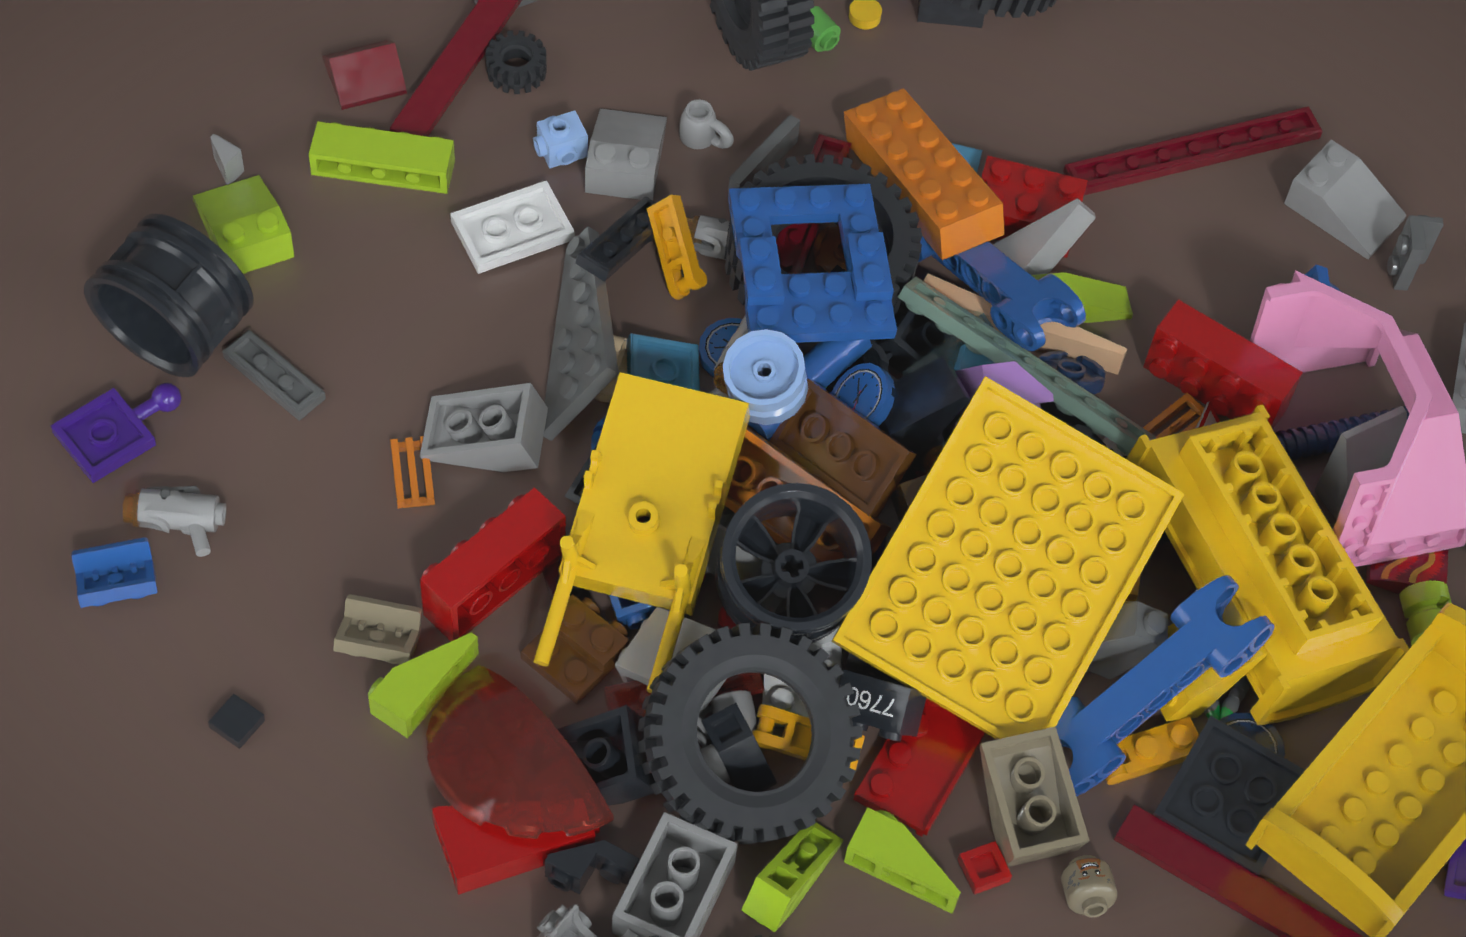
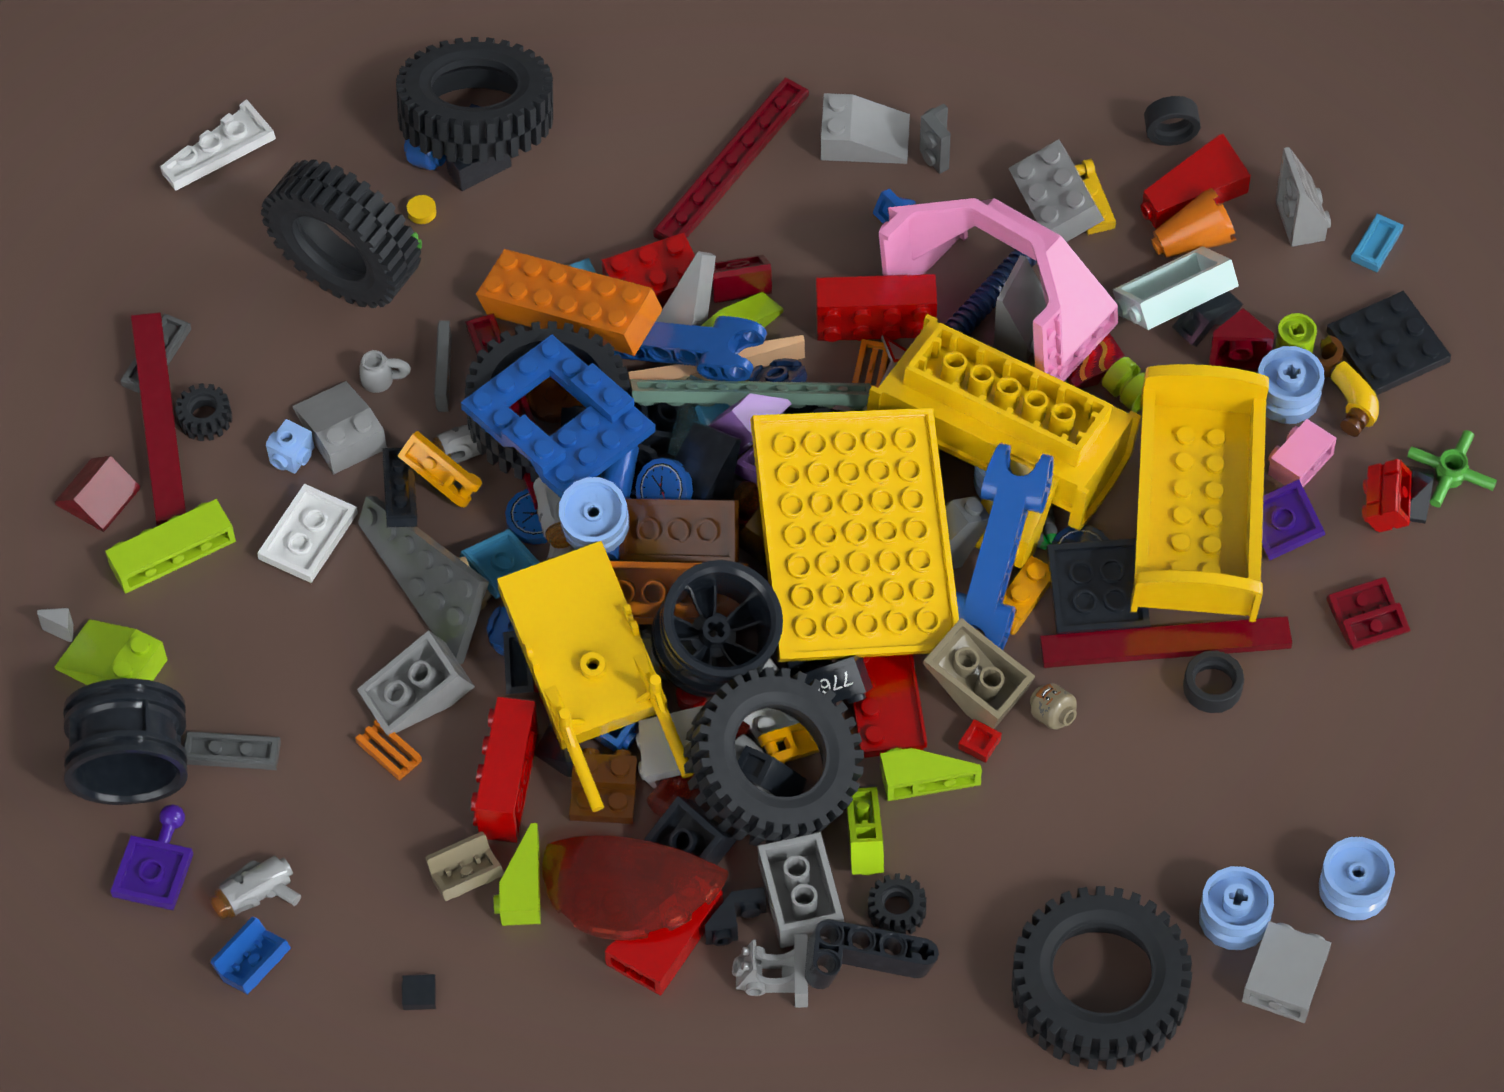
camera: 30 degrees left, 0 degrees up
(1111, 259) = (741, 278): none -> dark red slope

